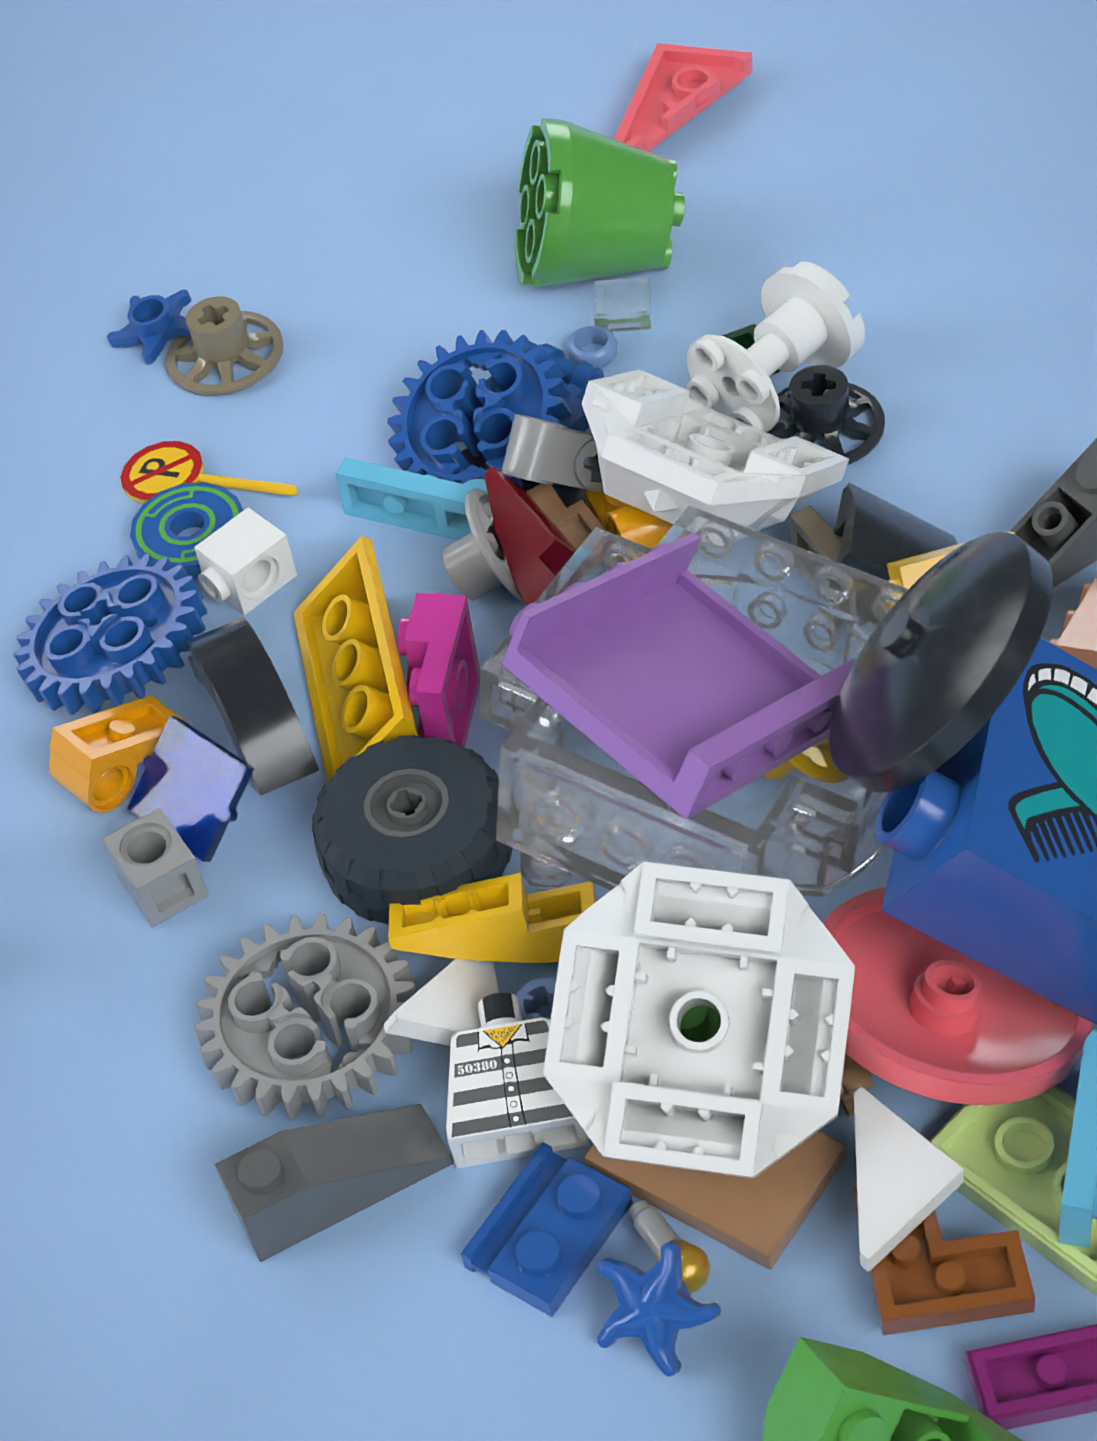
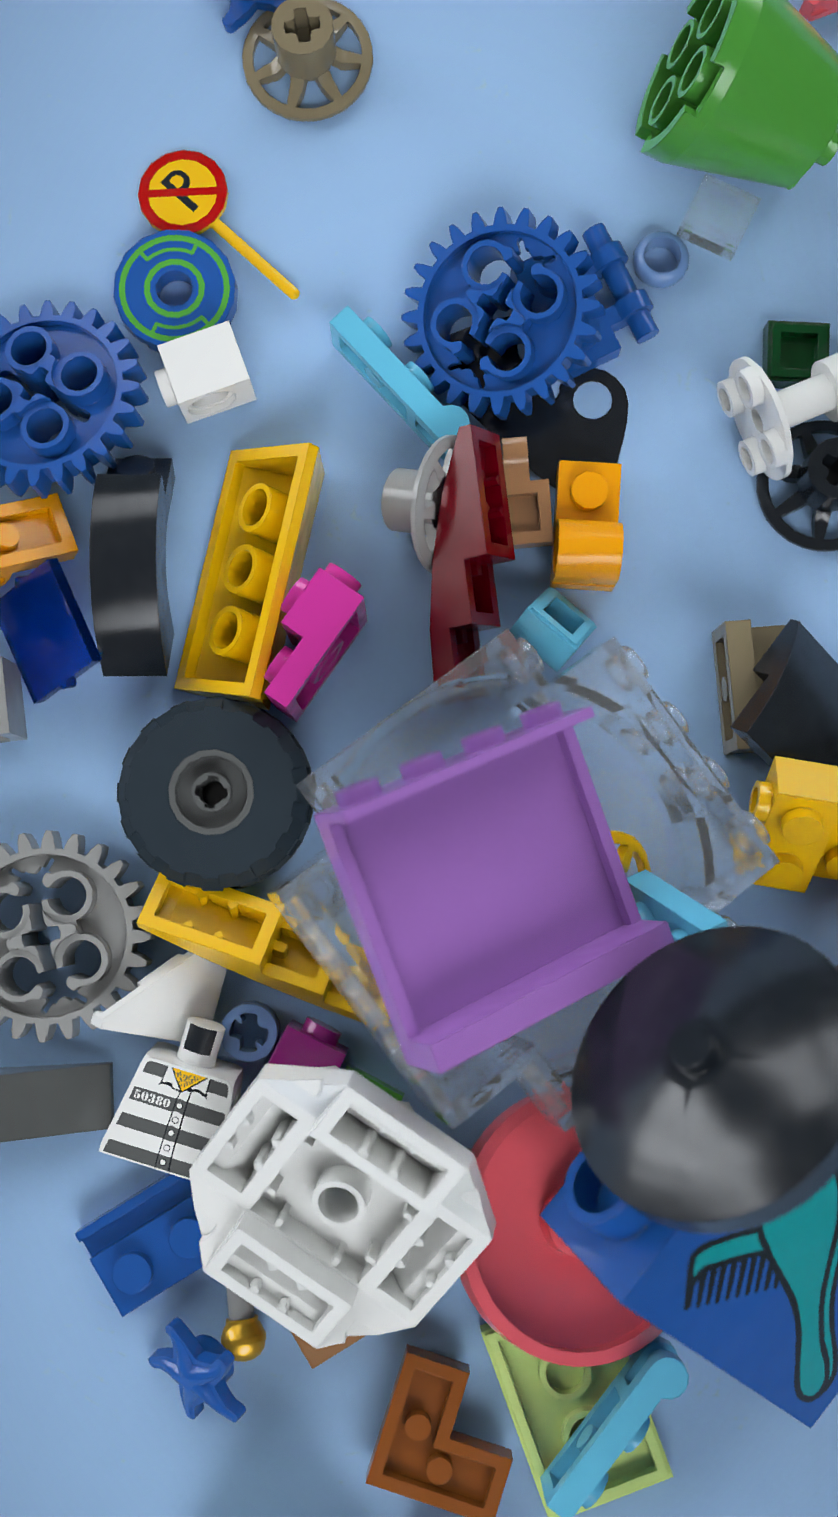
camera: 15 degrees right, 35 degrees up
(551, 454) = (547, 428): light grey piece -> none
(675, 453) = (681, 523): white piece -> none
(897, 1178) = (441, 1377): white tile -> none

